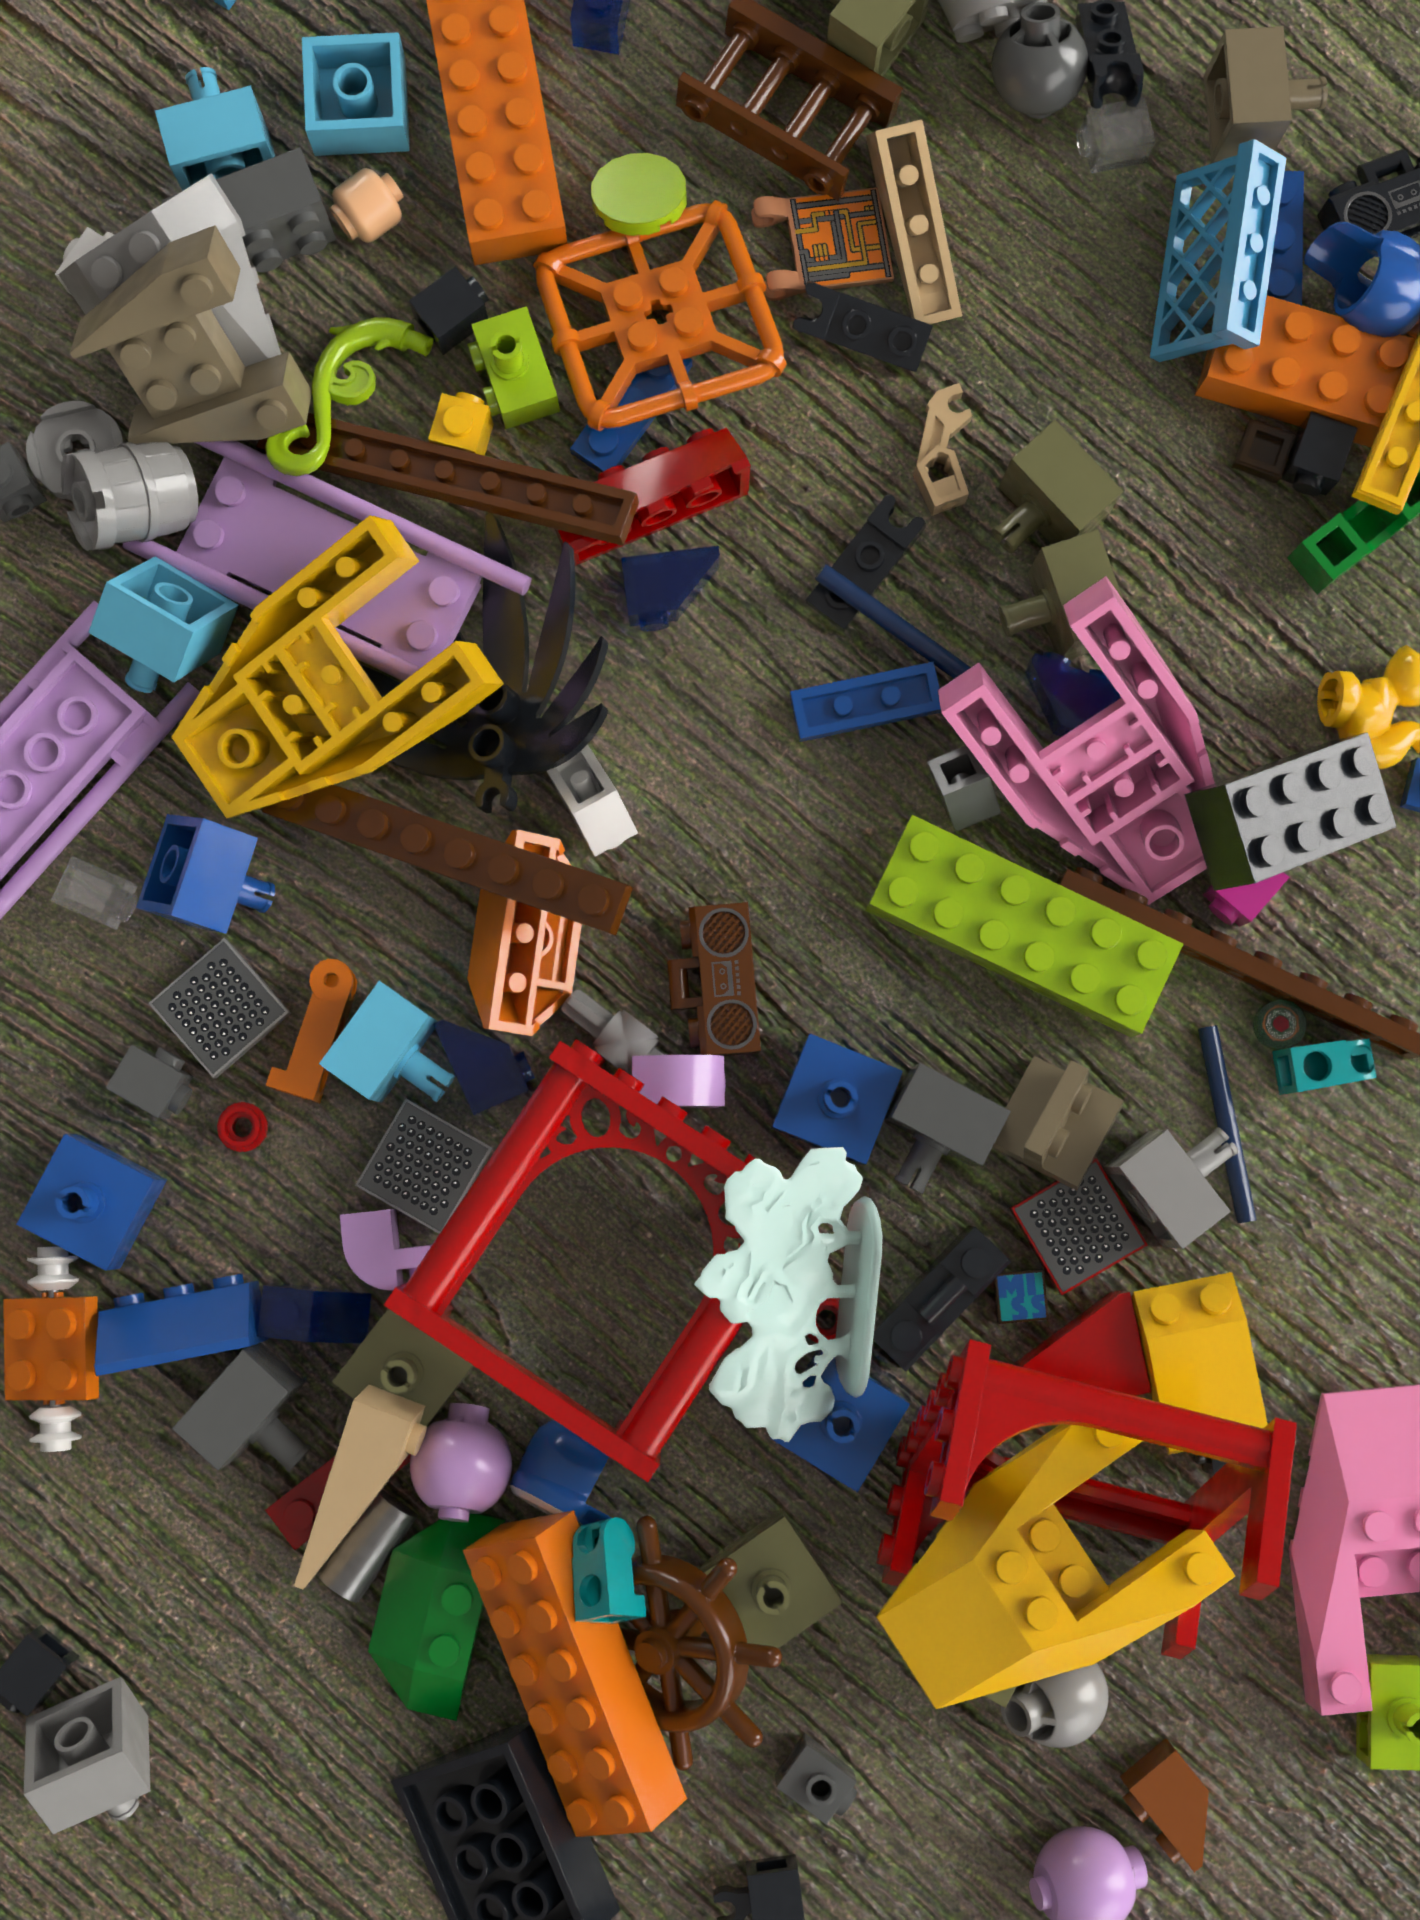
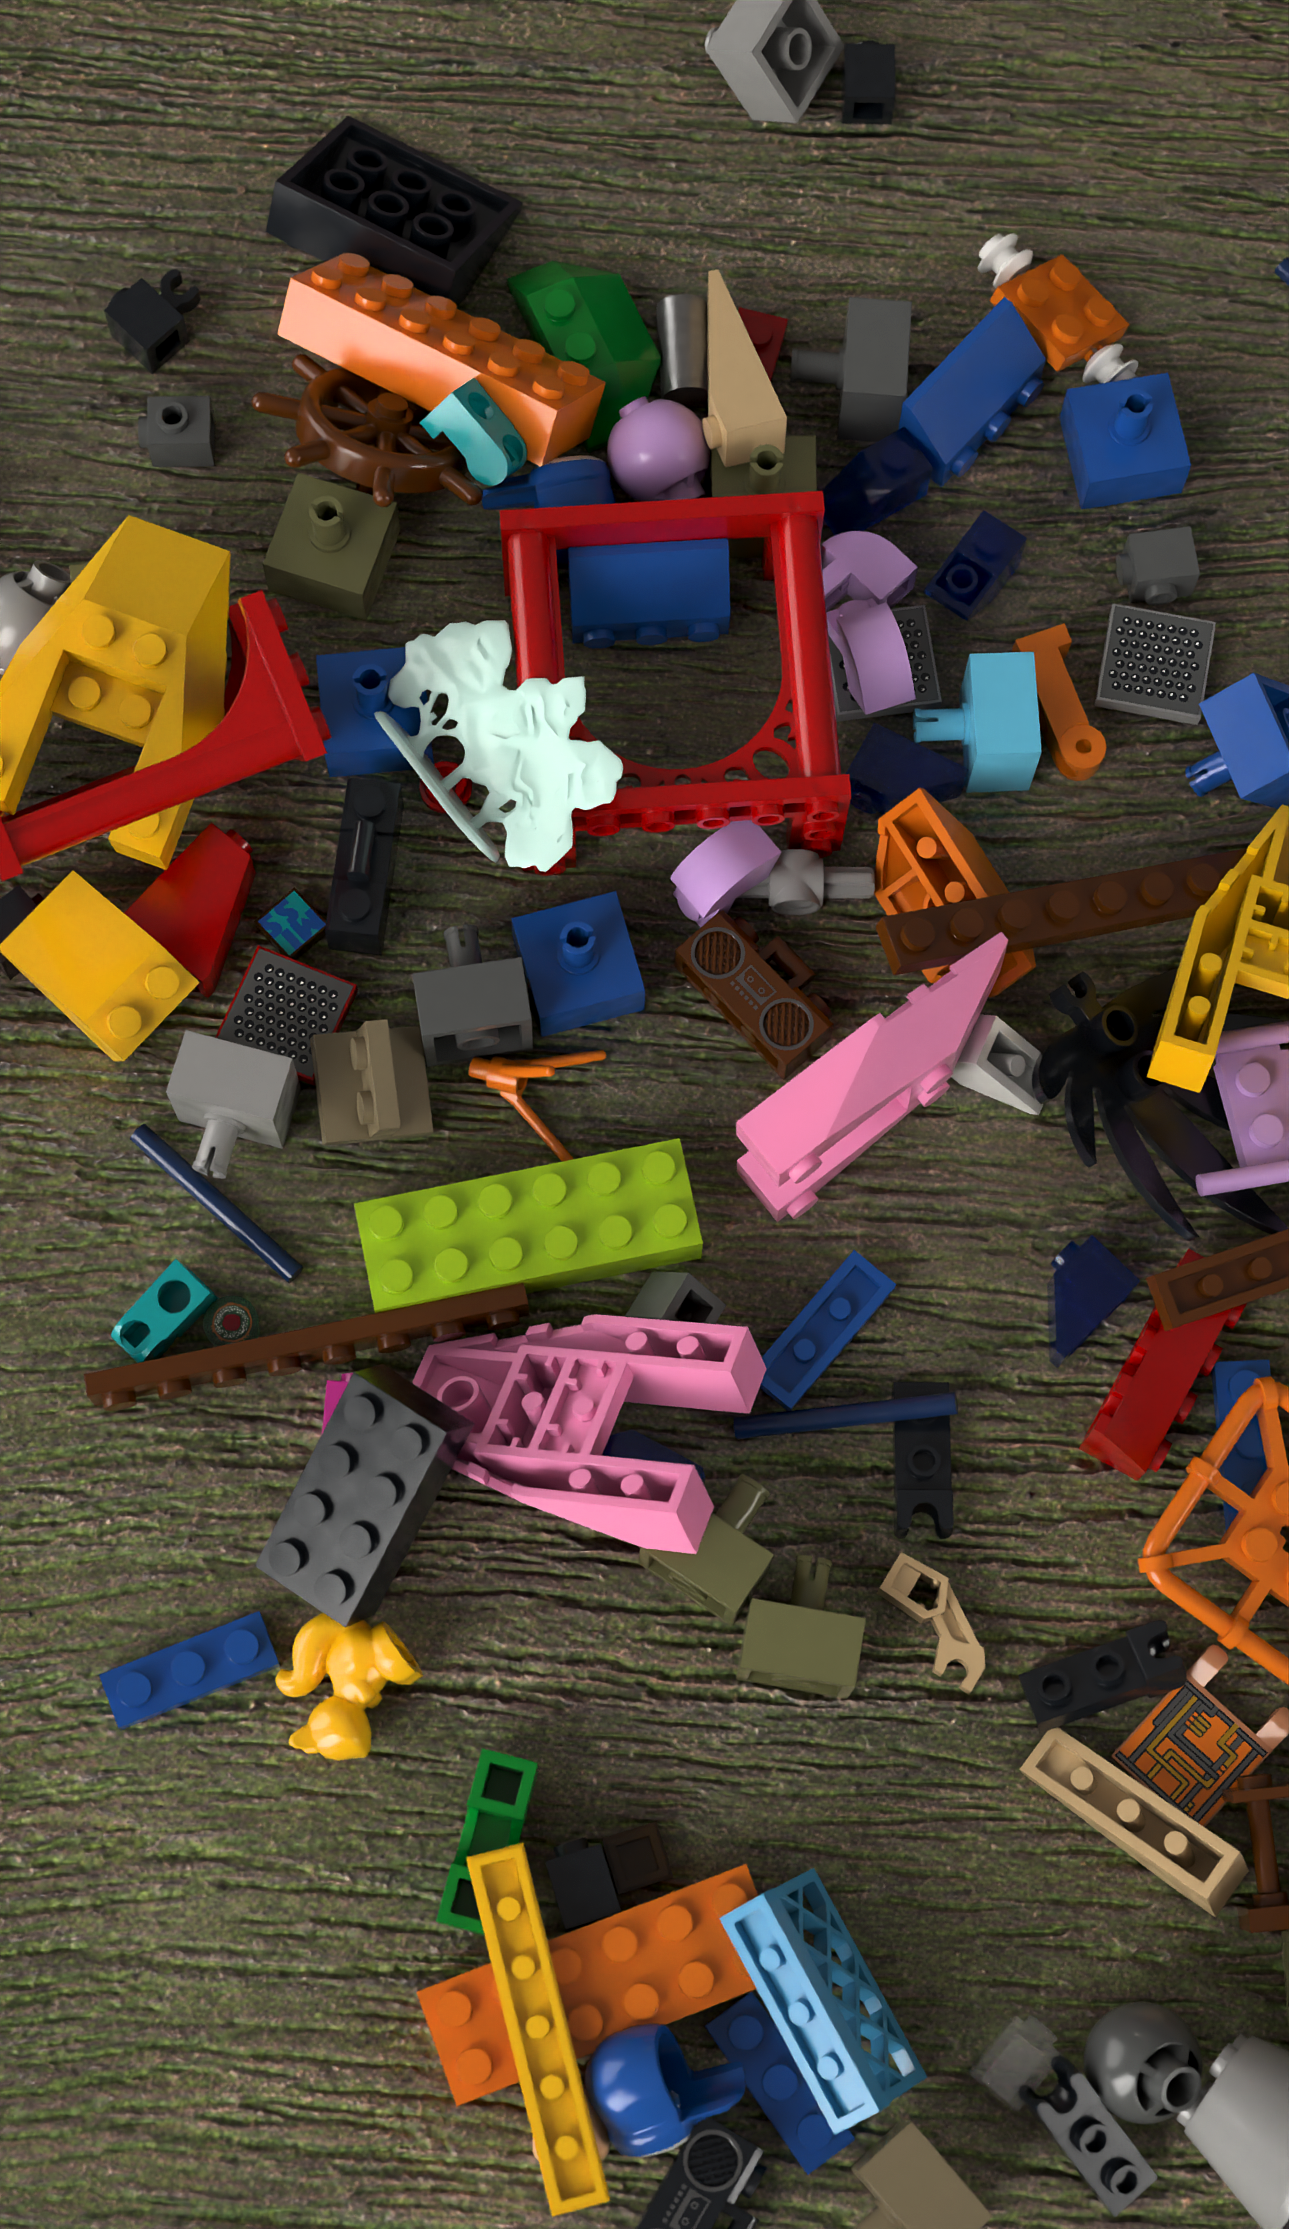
camera: 145 degrees right, 10 degrees down
(227, 1123) = (1059, 575): red plate -> none
(295, 1181) = (977, 567): none -> clear blue slope
(434, 1168) = (872, 654): none -> lavender brick
(561, 1349) = (649, 592): none -> blue slope
(716, 822) = (863, 1087): none -> bright pink wedge
(947, 1053) = (512, 1077): none -> orange plant

